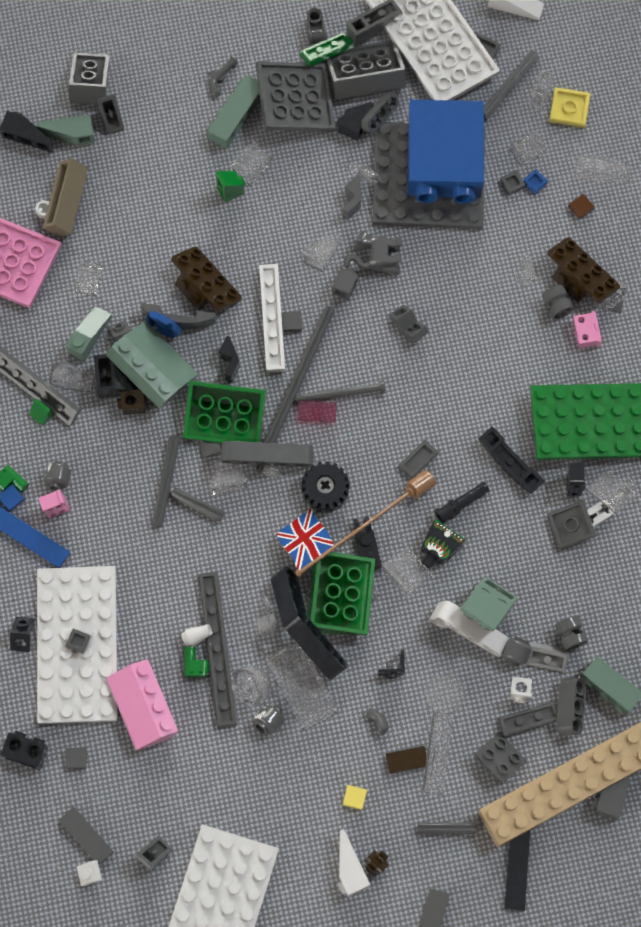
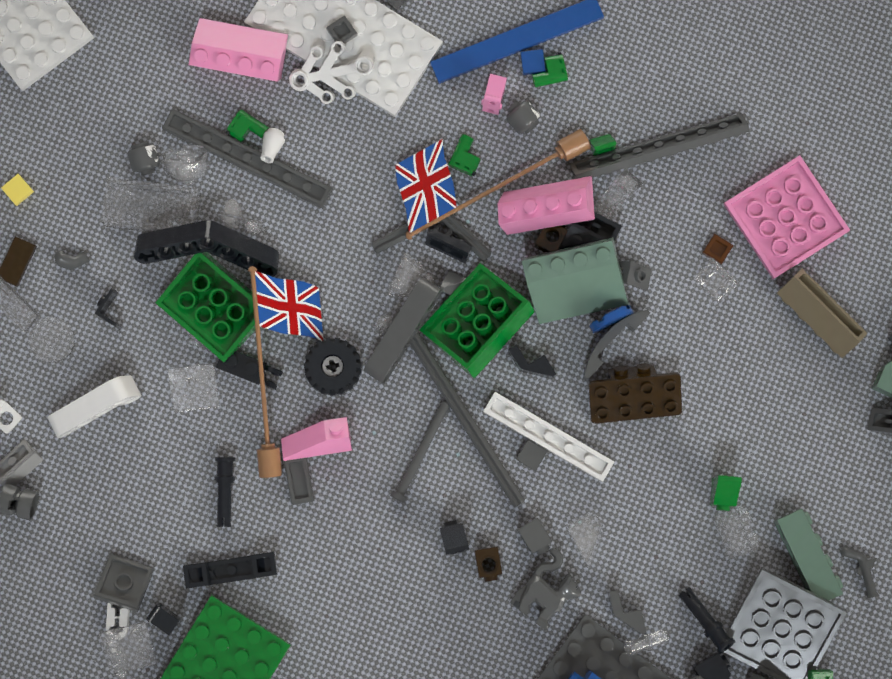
camera: 125 degrees right, 10 degrees up
(41, 209) = (827, 283): white tile -> none
(64, 292) = (717, 249): none -> reddish brown tile
(87, 333) = (656, 243): sand green slope -> none
(111, 415) = (546, 206): none -> bright pink slope
(115, 630) = (328, 73): none -> white plant
(116, 498) = (461, 159): none -> green piece
(151, 507) = (429, 189): none -> flag
(183, 459) = (448, 245): none -> black plate
(317, 411) = (418, 414): clear pink plate -> none
(325, 137) = (712, 628): none -> black pin
(380, 307) = (491, 553): none -> dark brown brick
(383, 462) = (317, 440): none -> bright pink slope
(386, 326) = (454, 538): none -> black slope
(407, 323) = (447, 571): dark grey slope -> none
(440, 544) = (195, 438): torso -> none
(488, 604) = (97, 436): sand green slope -> none
(516, 651) = (40, 436): dark grey head -> none

